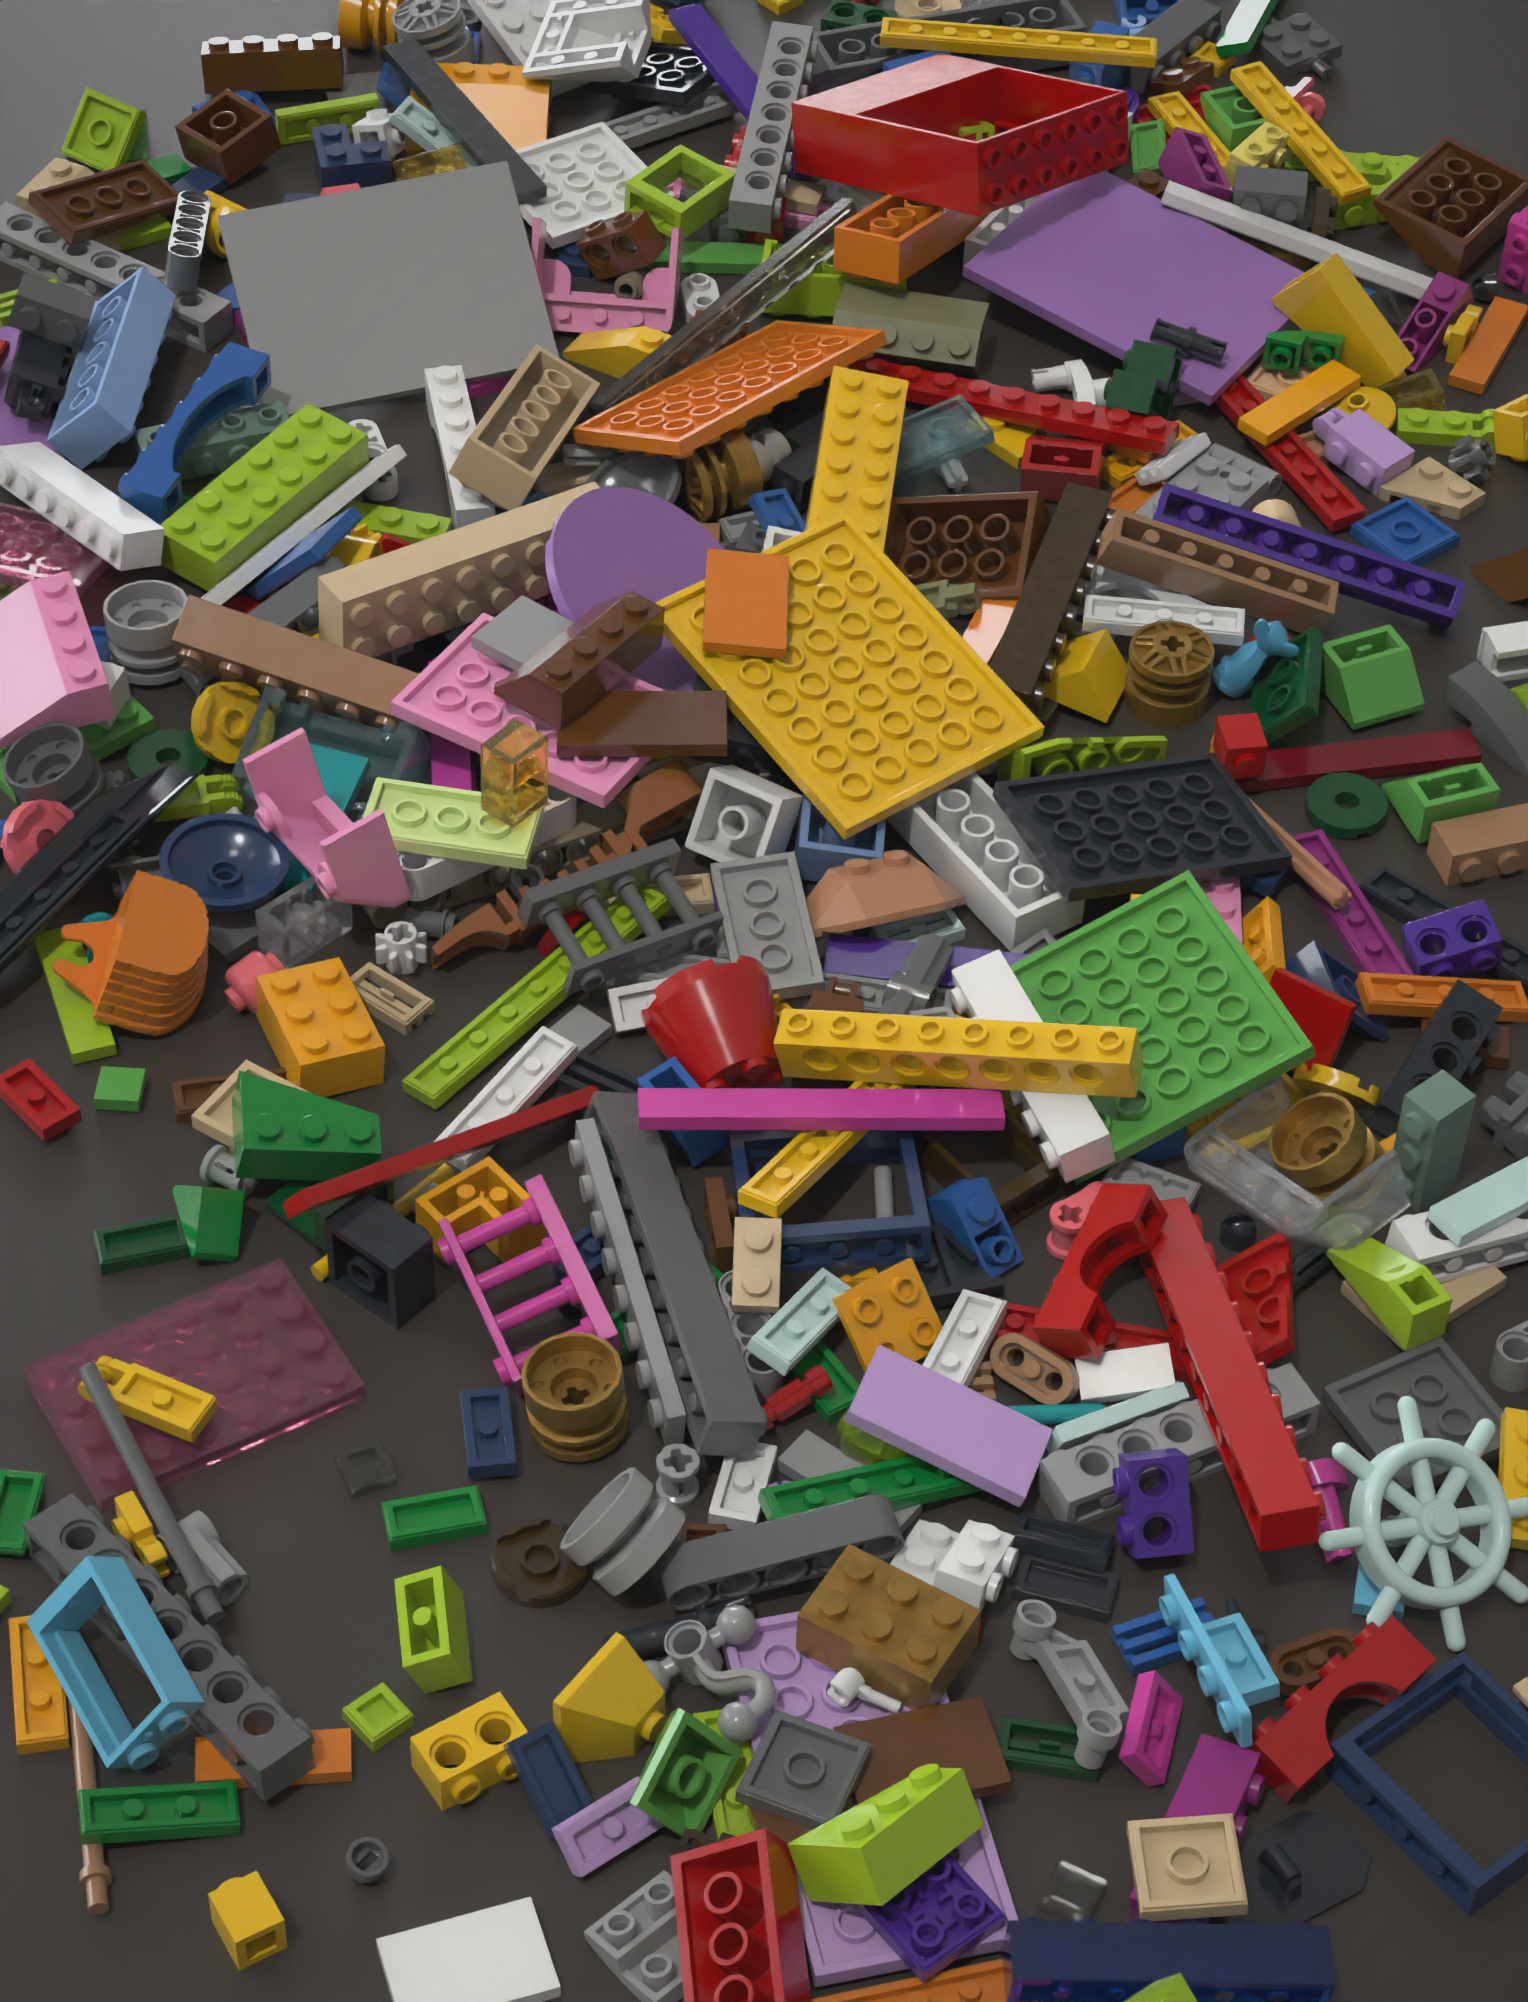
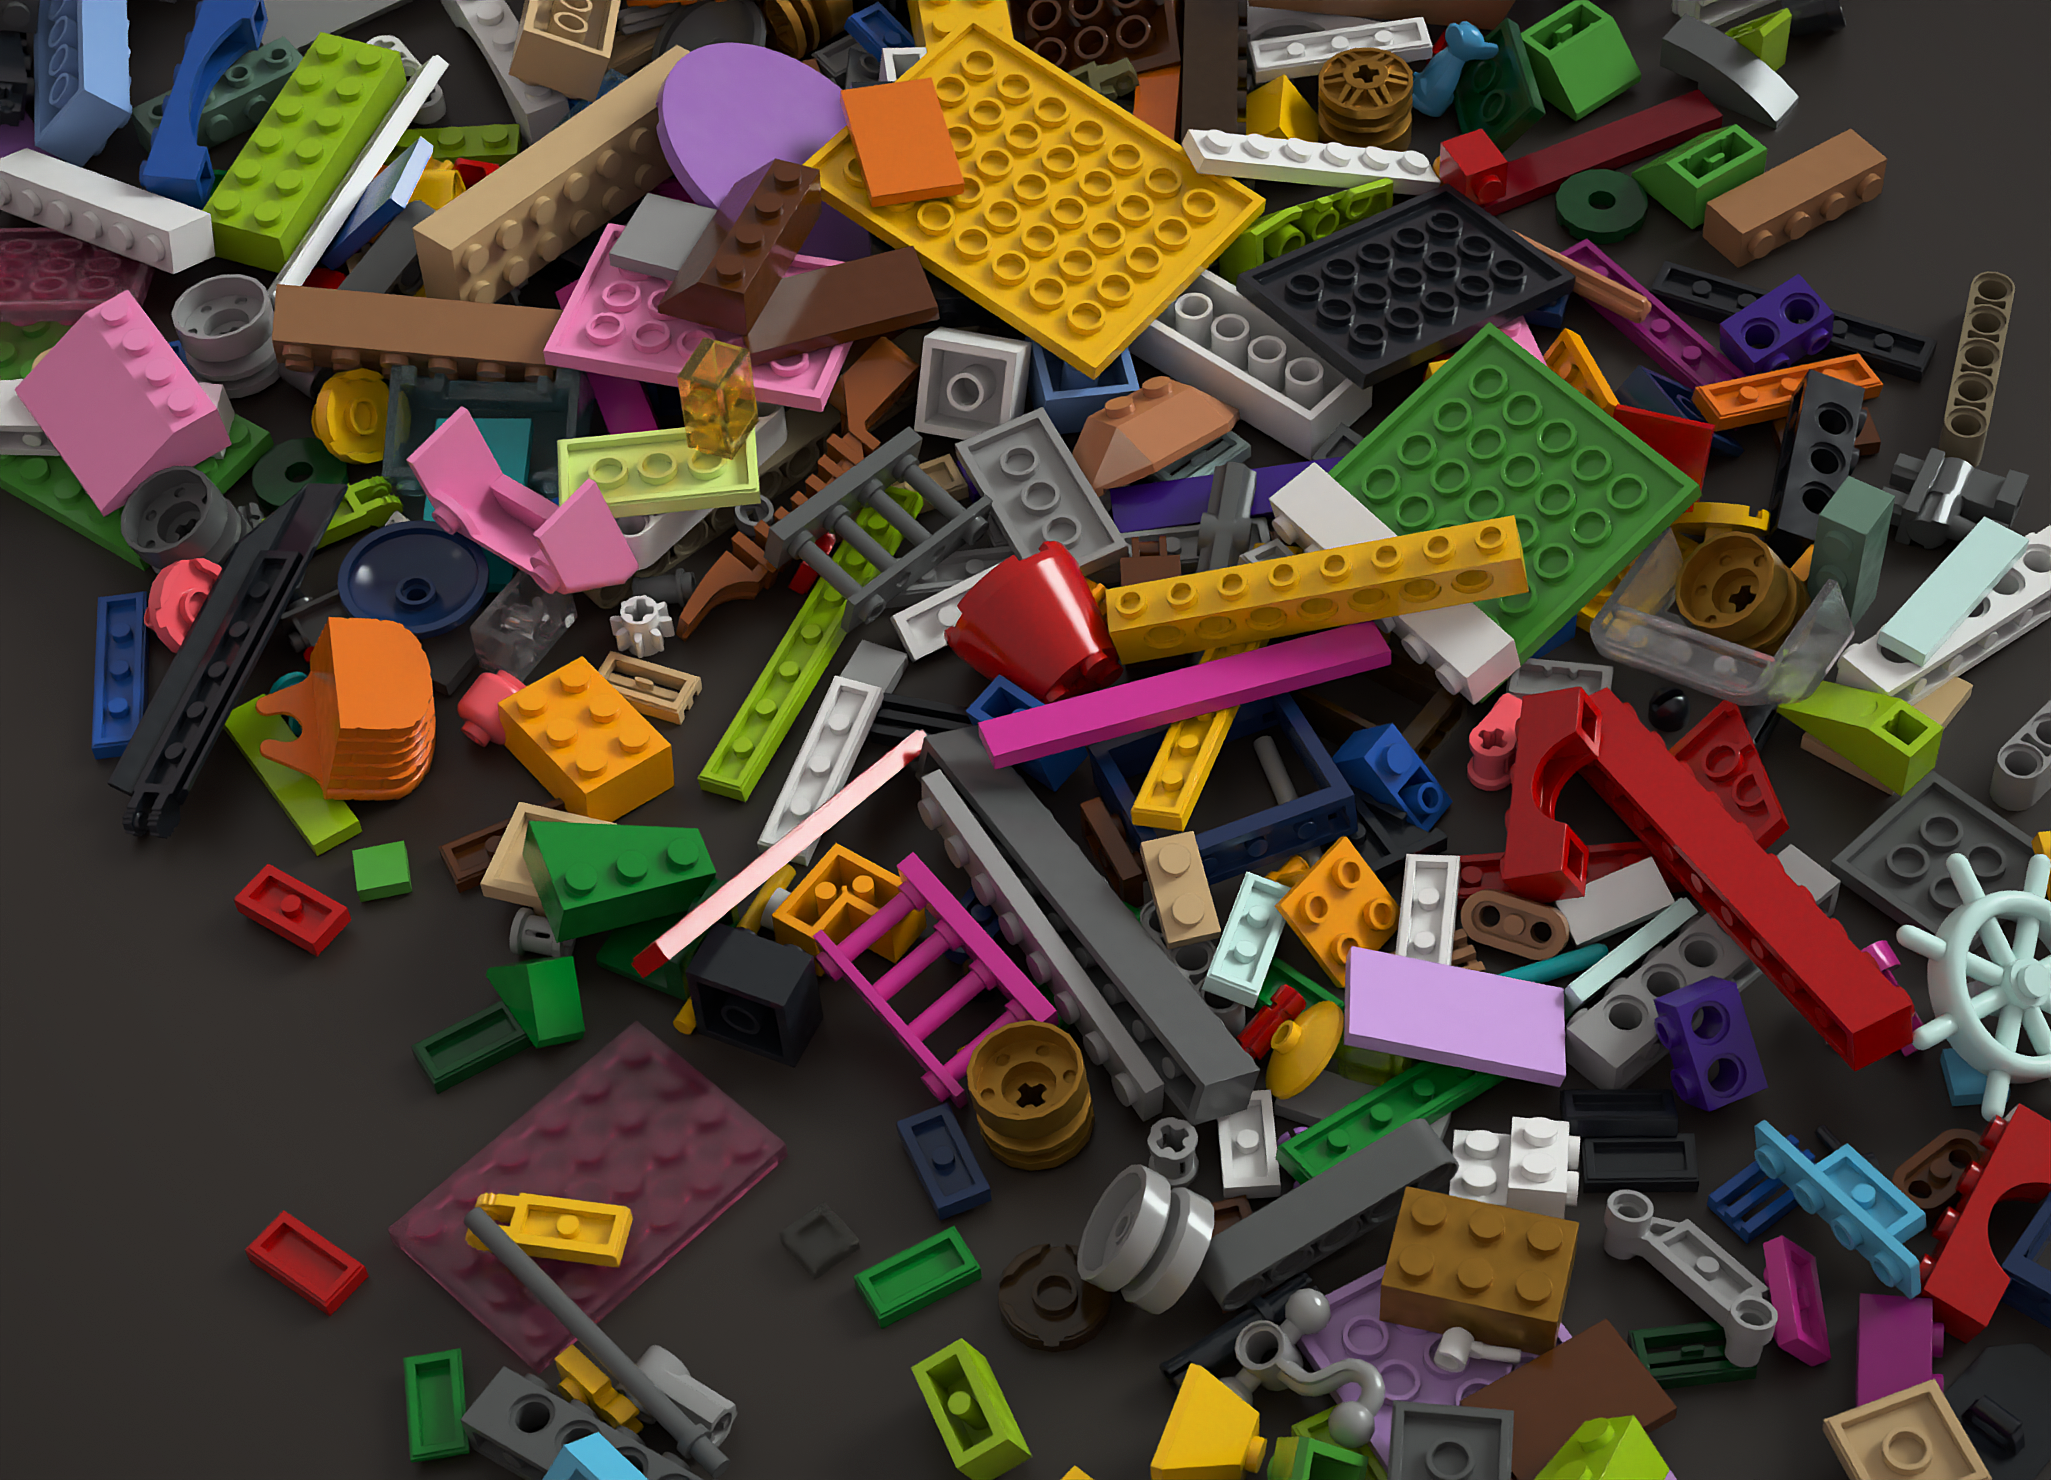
camera: 10 degrees left, 5 degrees up
(813, 1418) = (1303, 1049): none -> yellow dish
(1096, 705) = (1307, 162): none -> white plate

